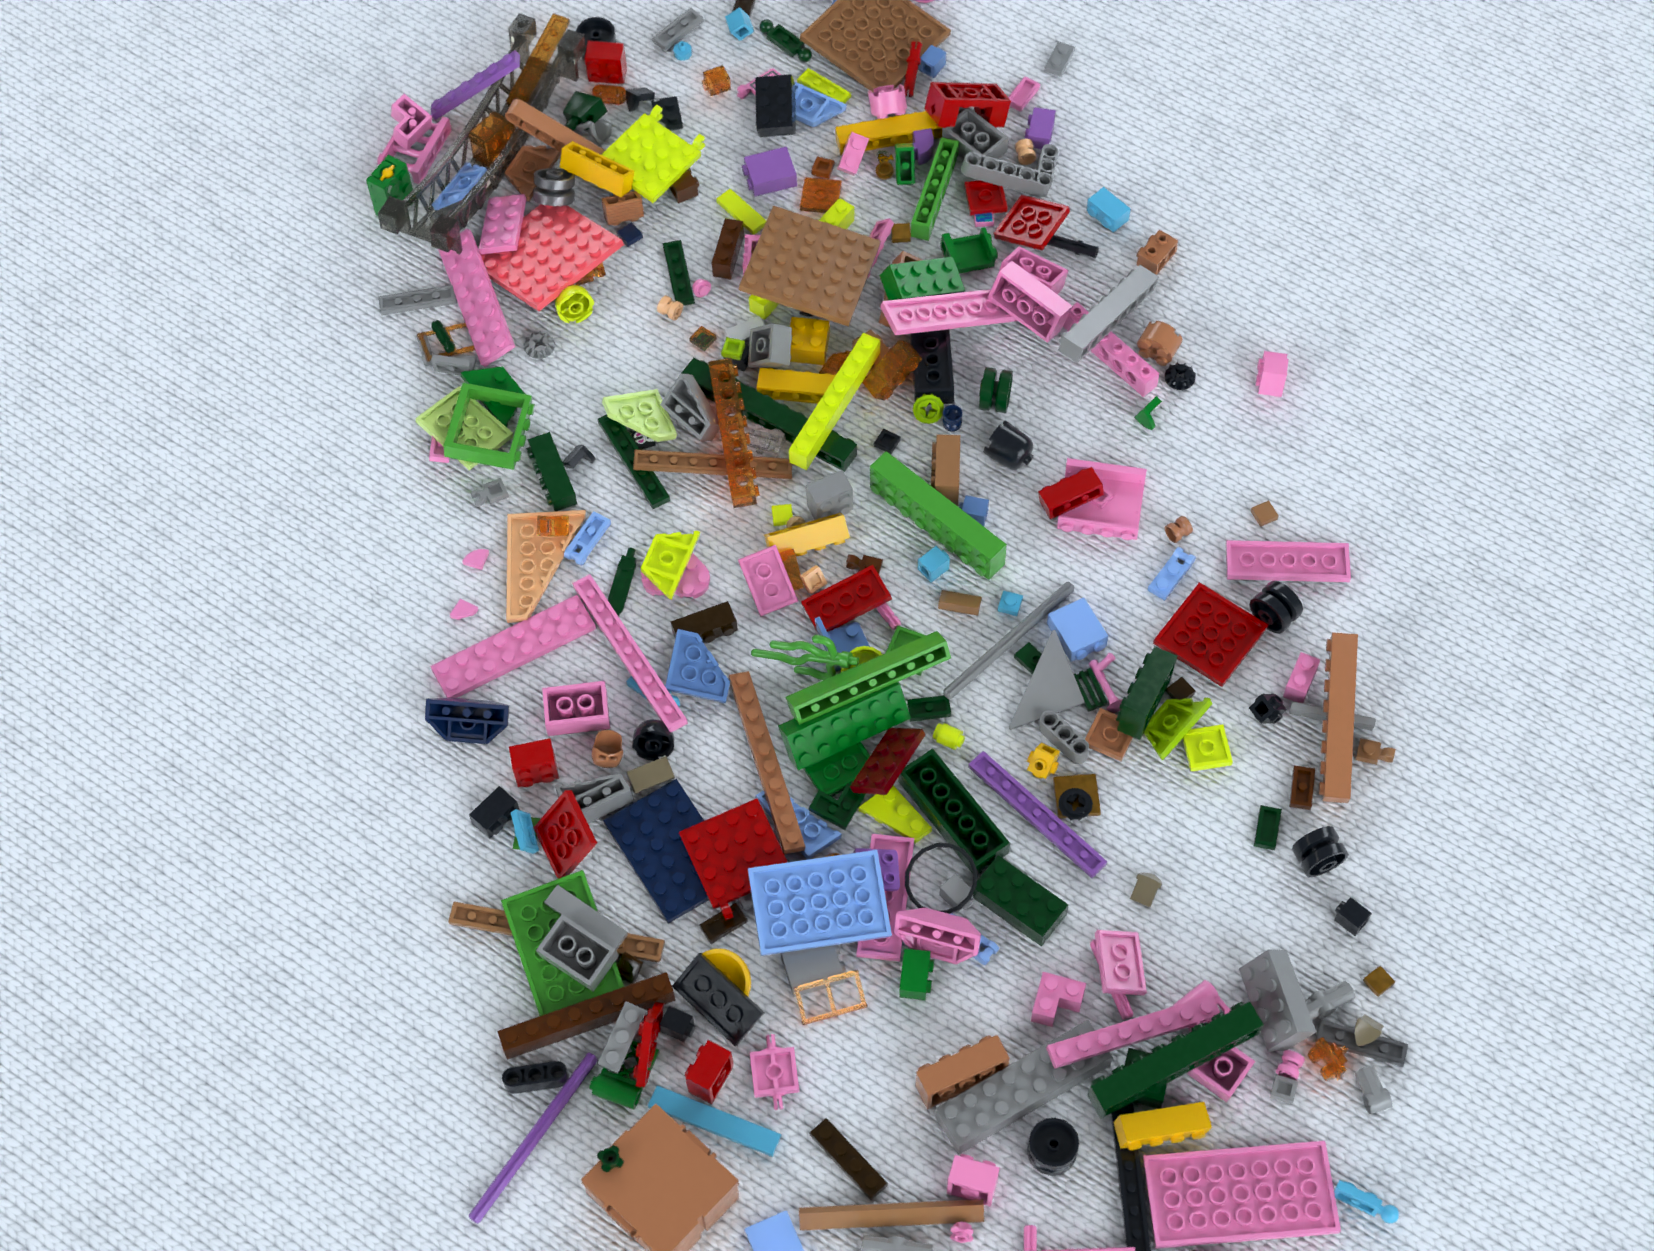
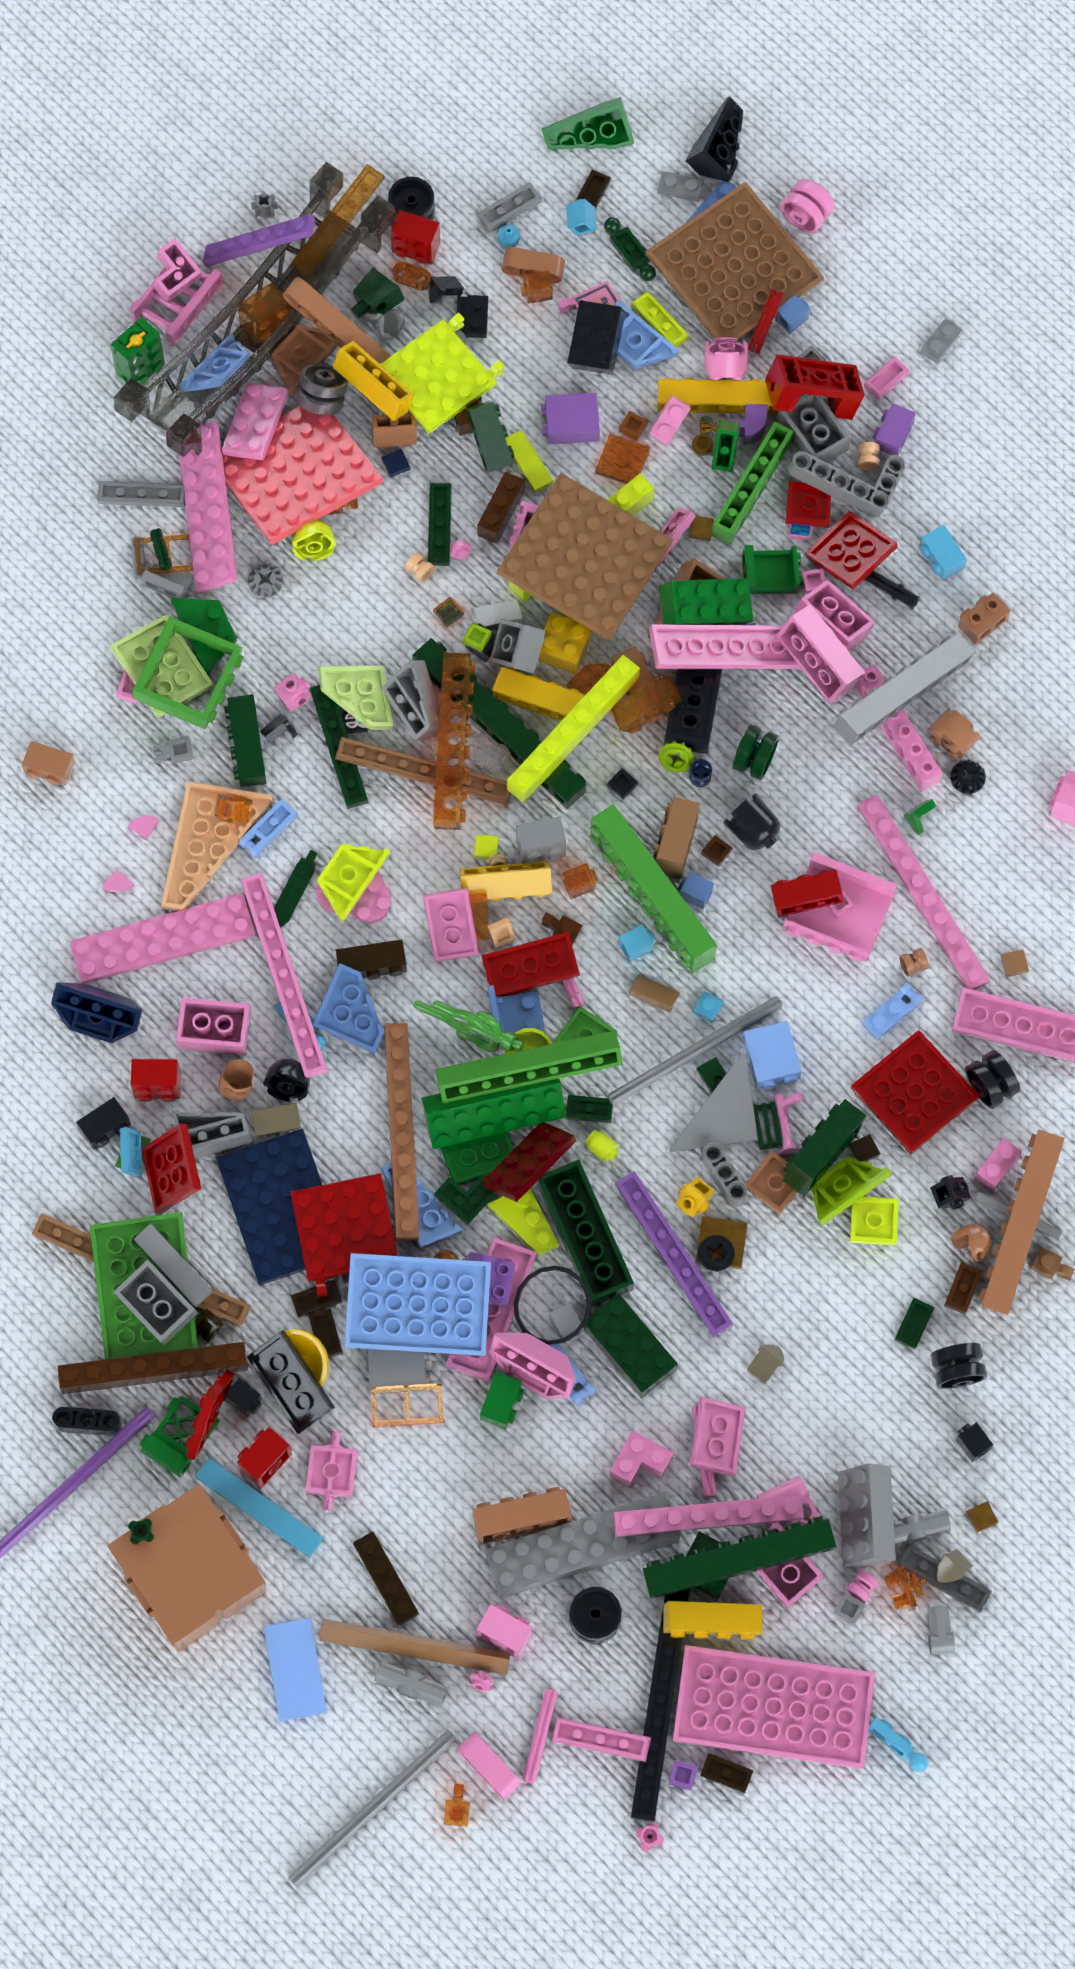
camera: 10 degrees right, 10 degrees up
(380, 524) = (48, 763): none -> nougat brick
(473, 64) = (264, 205): none -> light grey gear
(584, 424) = (293, 692): none -> bright pink brick
(621, 1037) = (182, 1402): light grey brick -> none
(696, 64) = (523, 262): none -> nougat beam
(705, 194) = (490, 435): none -> dark green brick
(736, 943) = (325, 1330): none -> dark brown tile
(870, 524) = (579, 880): none -> clear orange brick
(983, 476) = (716, 851): none -> reddish brown plate
(1005, 250) = (813, 579): none -> bright pink plate
(1169, 474) = (923, 893): none -> bright pink plate
(1299, 741) = (976, 1237): none -> nougat helmet

